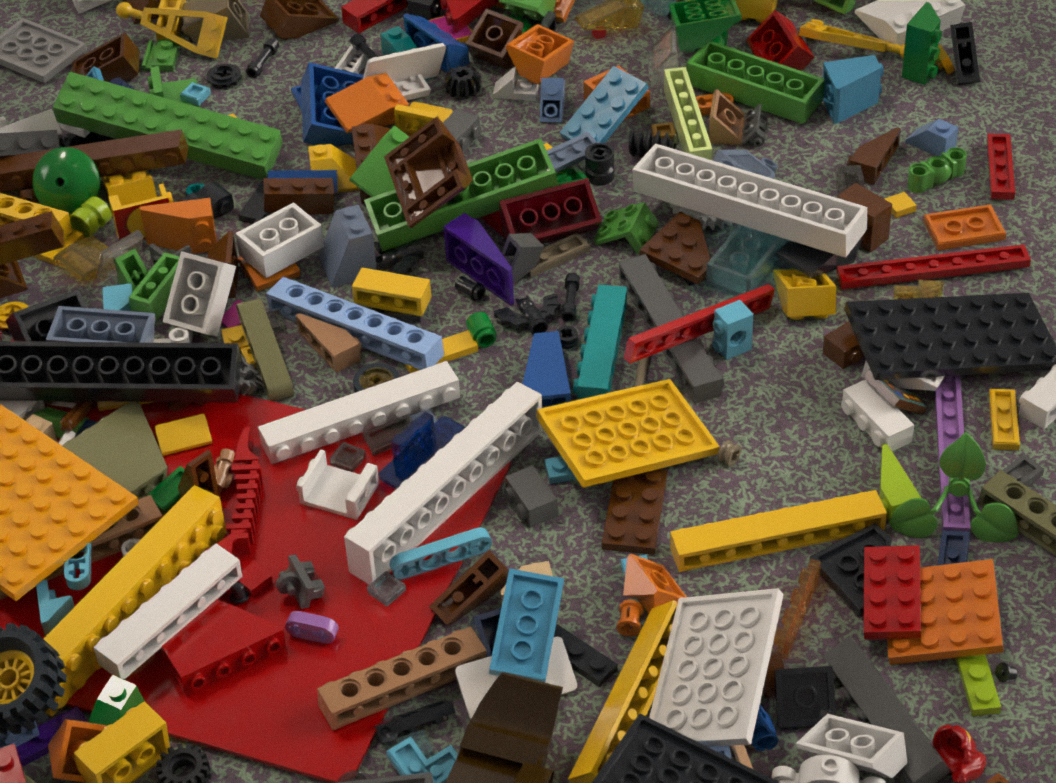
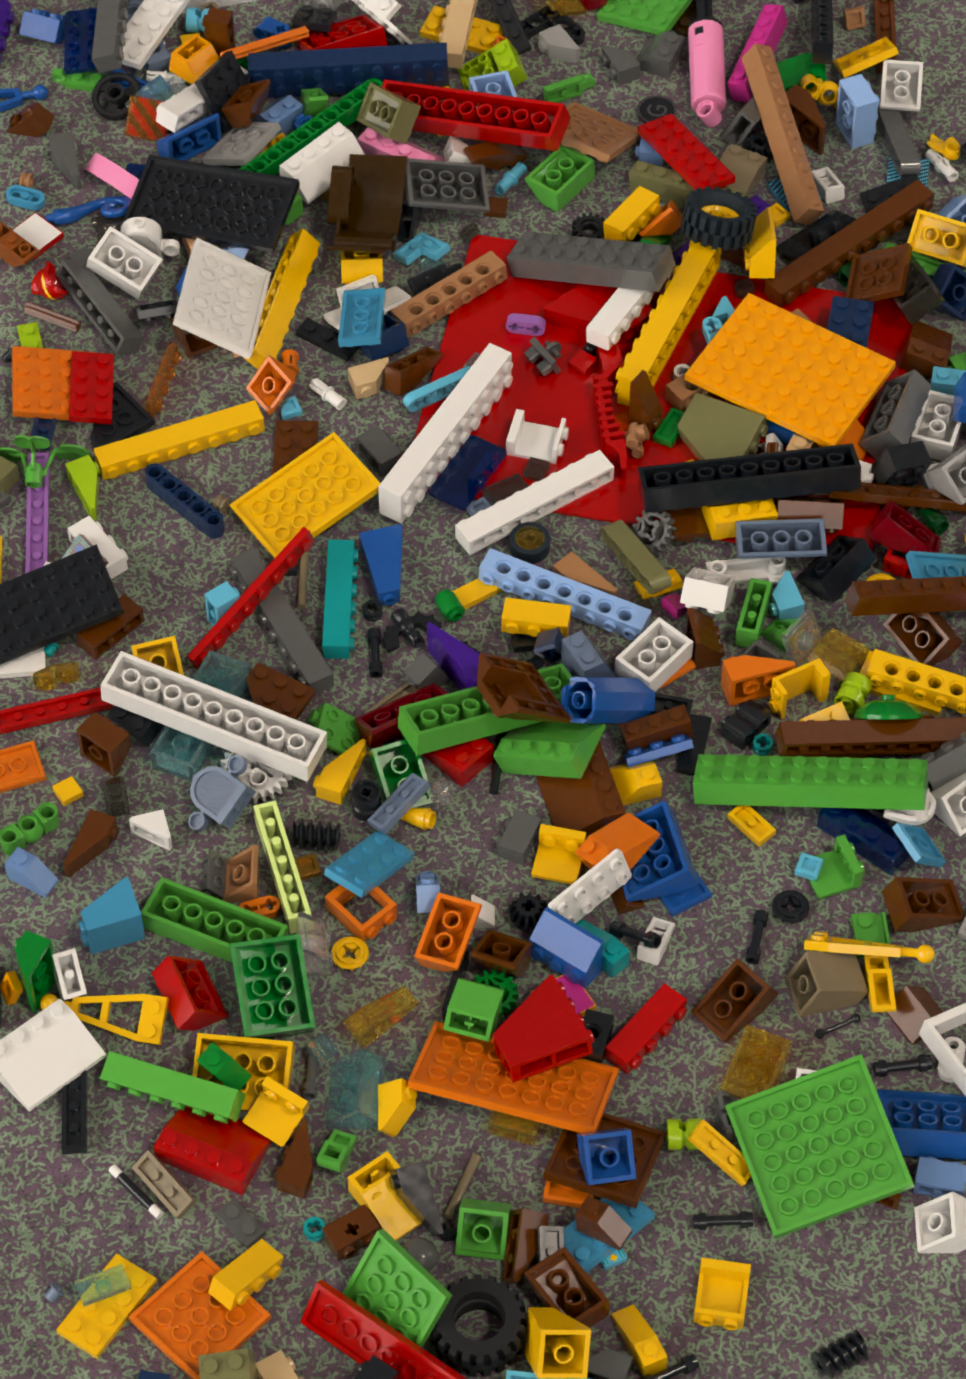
camera: 170 degrees right, 10 degrees up
(204, 654) = (591, 261): none -> dark grey brick
(343, 185) = (607, 699): none -> blue brick
(386, 255) = (549, 644): none -> slope
(584, 577) = (327, 393): none -> white axle
(618, 192) = (340, 773): none -> yellow slope
(636, 66) = (352, 945): none -> yellow gear
(774, 459) = (184, 500): none -> dark blue beam
(813, 162) = (152, 827): none -> white slope
(890, 51) = (68, 974): none -> white slope
(947, 716) = (52, 317): none -> axle

